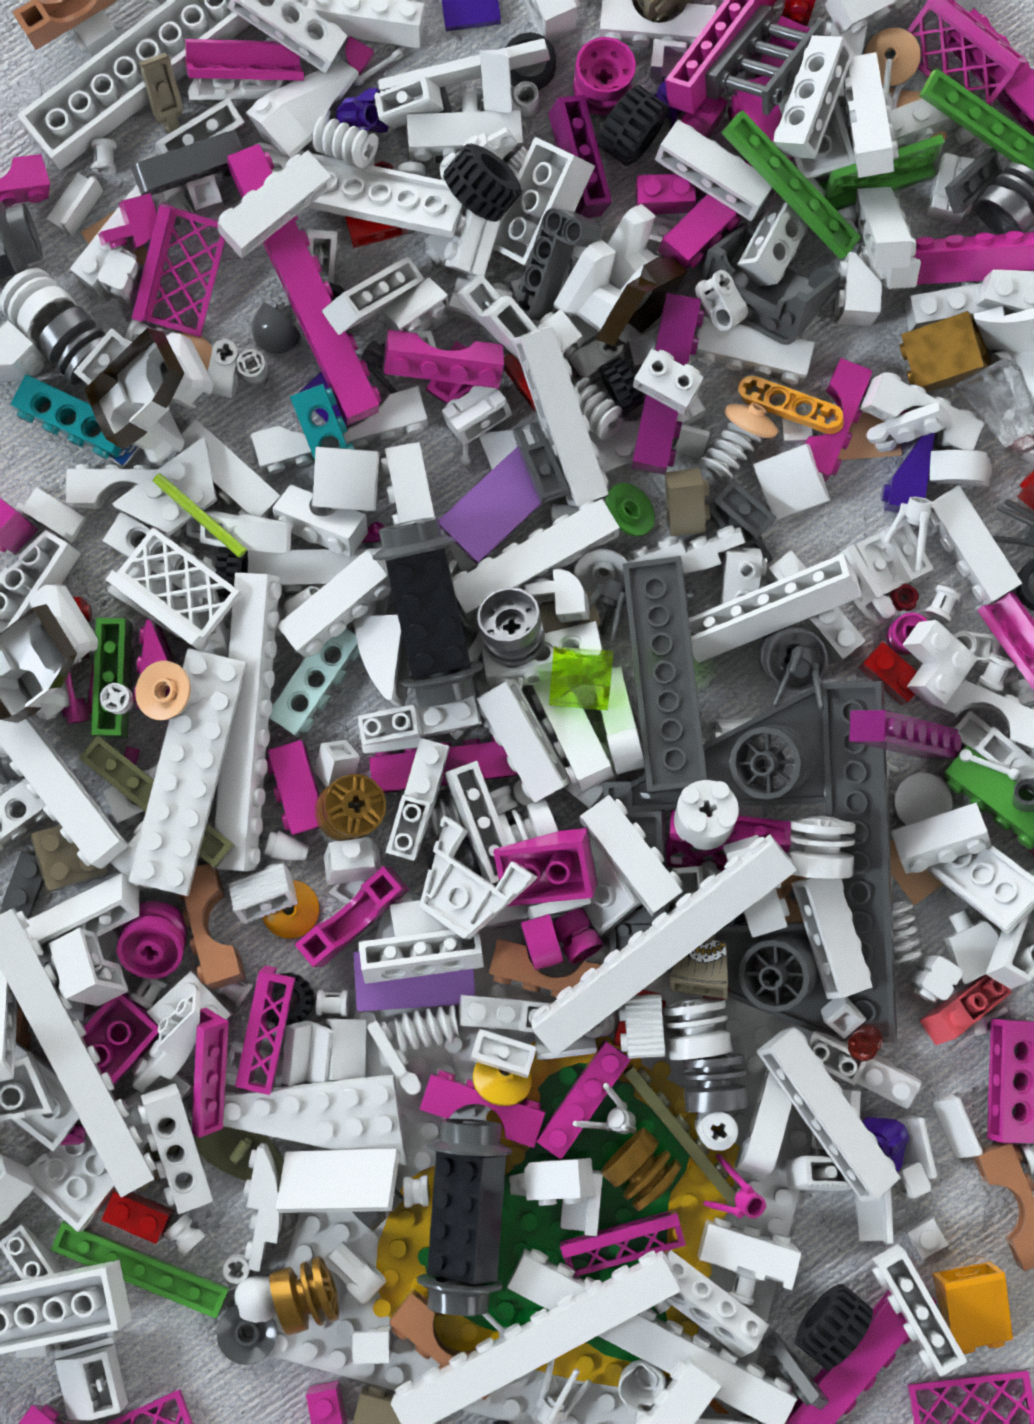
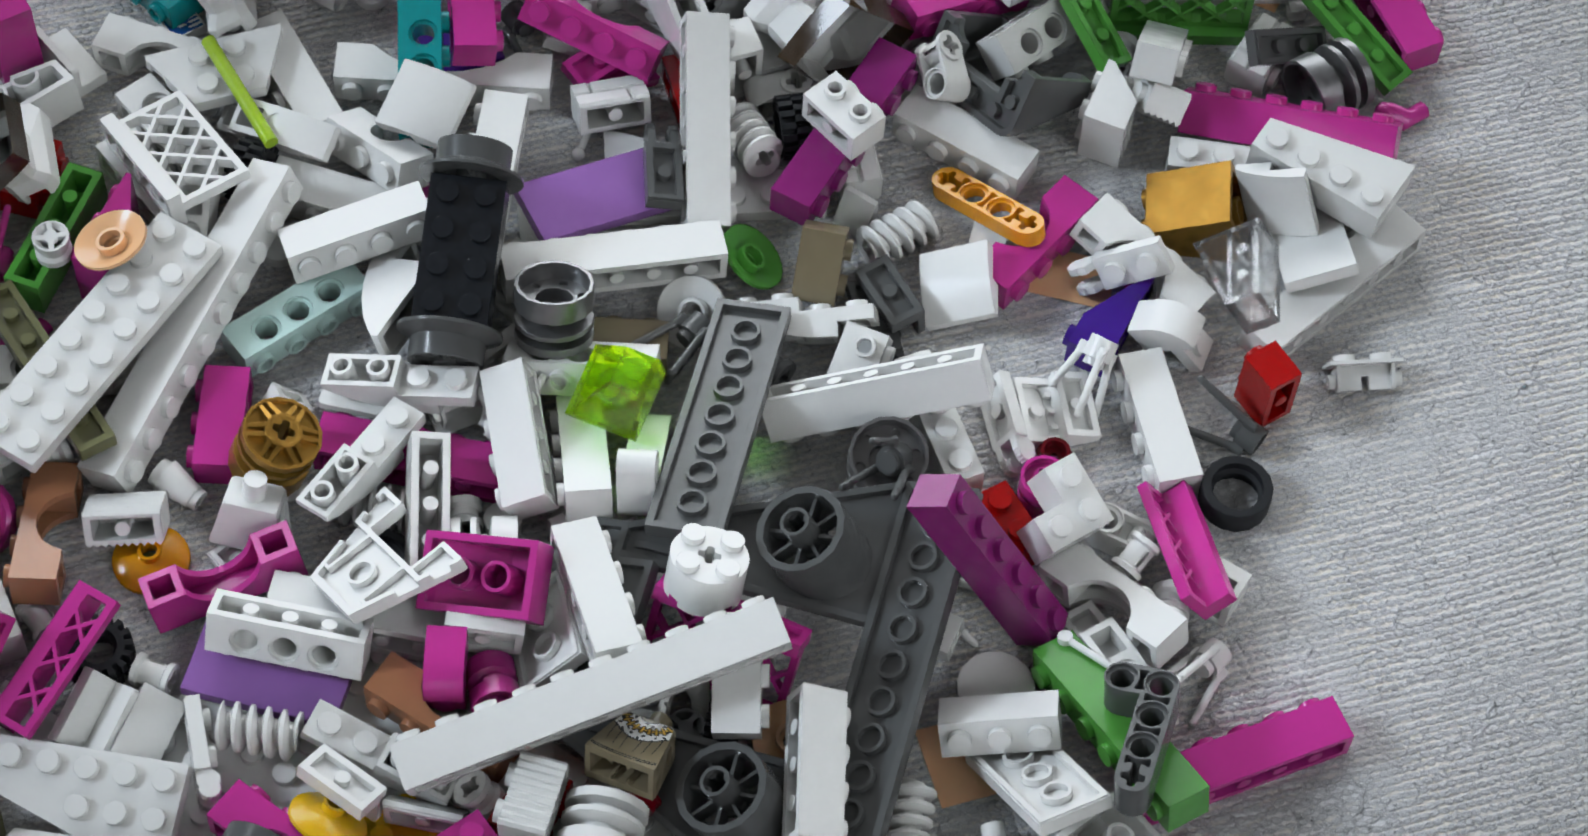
camera: 10 degrees right, 25 degrees down
(566, 591) = (632, 305): white brick -> none
(752, 419) = (937, 204): light nougat dish -> none
(822, 847) = (838, 653): white wheel -> none
(947, 594) = (1104, 470): white bush -> none

